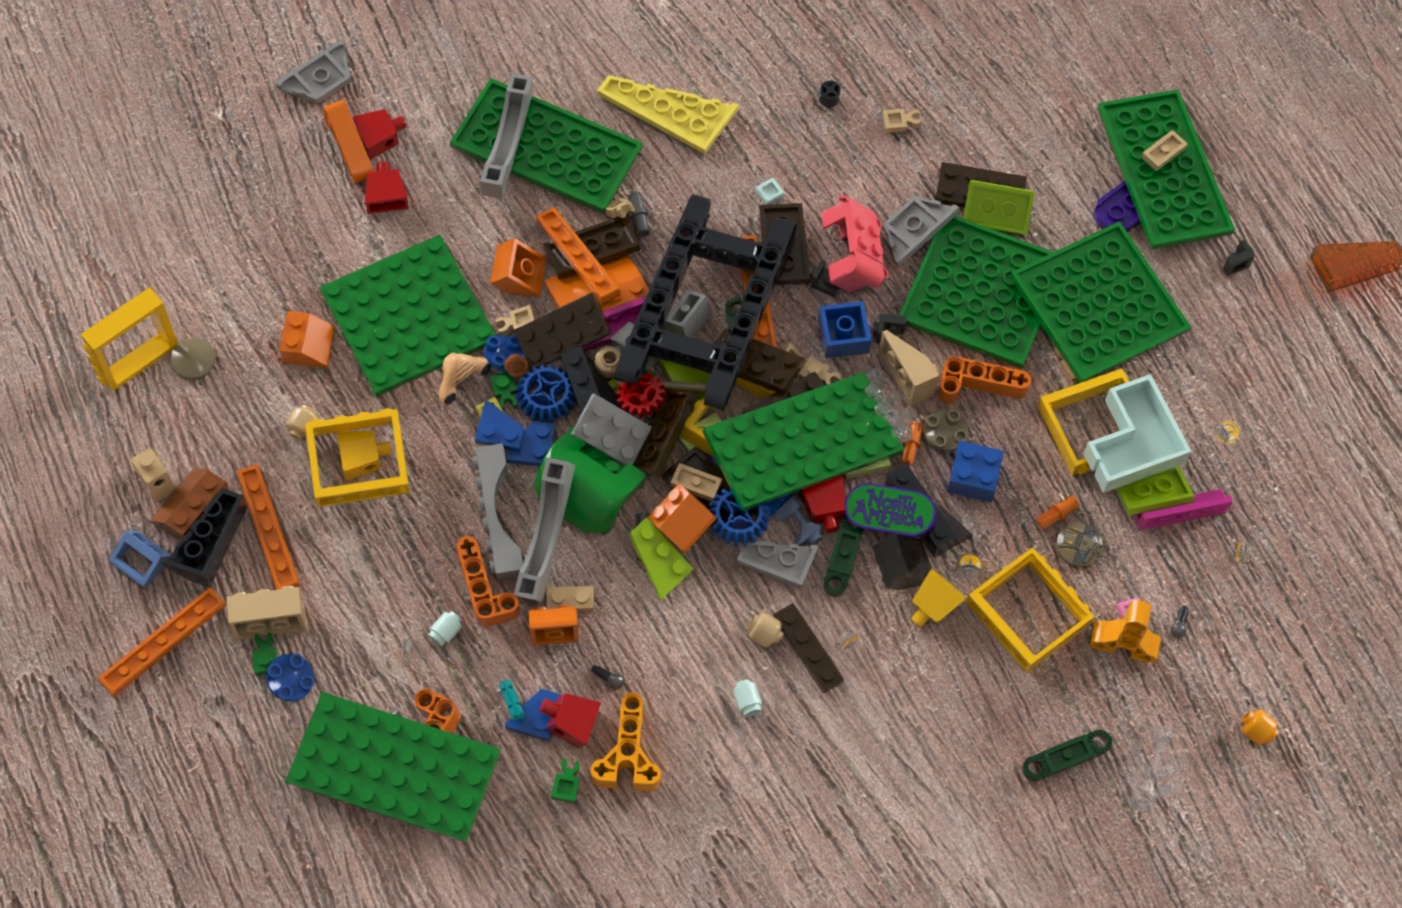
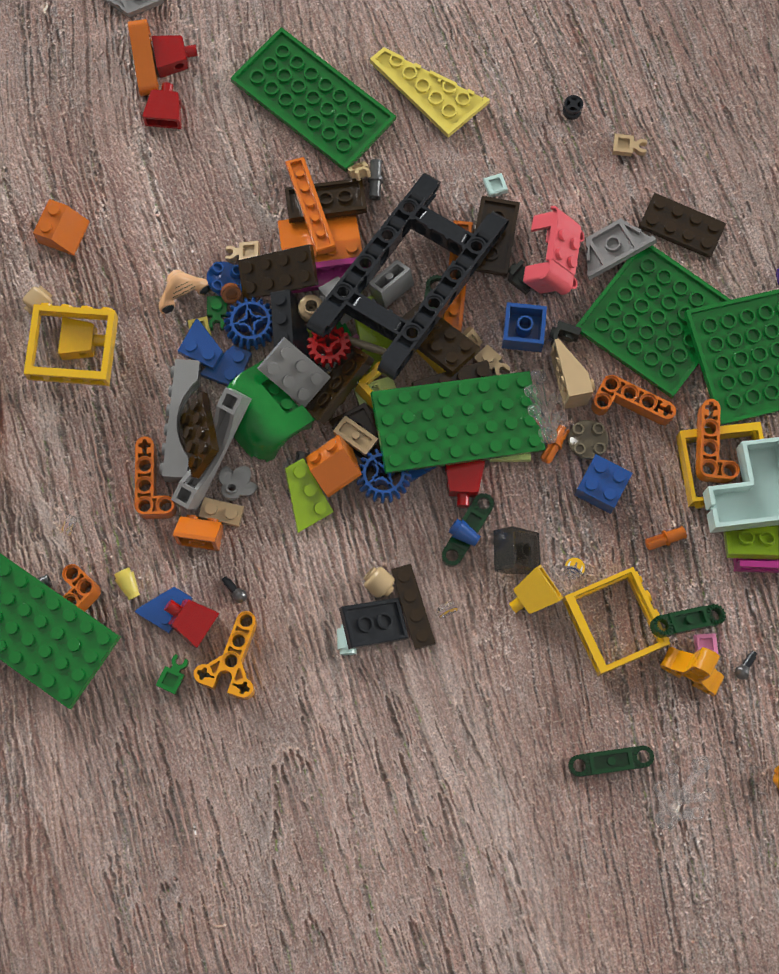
camera: 15 degrees right, 10 degrees up
(407, 314) = (153, 224): green plate -> none
(445, 628) = (108, 513): light aqua brick -> none
(488, 697) = (127, 582): none -> light yellow cone
(500, 162) = (266, 106): light grey arch -> none
(511, 700) = (146, 591): teal axle -> none
(518, 269) = (257, 206): orange slope -> none
(527, 518) = (199, 435): none -> dark brown plate
(578, 564) = (238, 480): none -> light grey plate
(771, 673) = (373, 623): none -> black tile
(782, 562) = (411, 524): light grey wing -> none
(809, 530) = (443, 502): sand blue piece -> none
(842, 554) = (463, 532): none -> blue cone
(890, 510) = (517, 503): tile -> none
(947, 530) = (551, 516): black wedge -> none
(999, 206) = (693, 246): lime plate -> none
(1078, 398) = (713, 442): none -> orange beam
(1079, 544) = (677, 572): dark tan dish -> none
(1106, 589) = (687, 620): none -> dark green plate

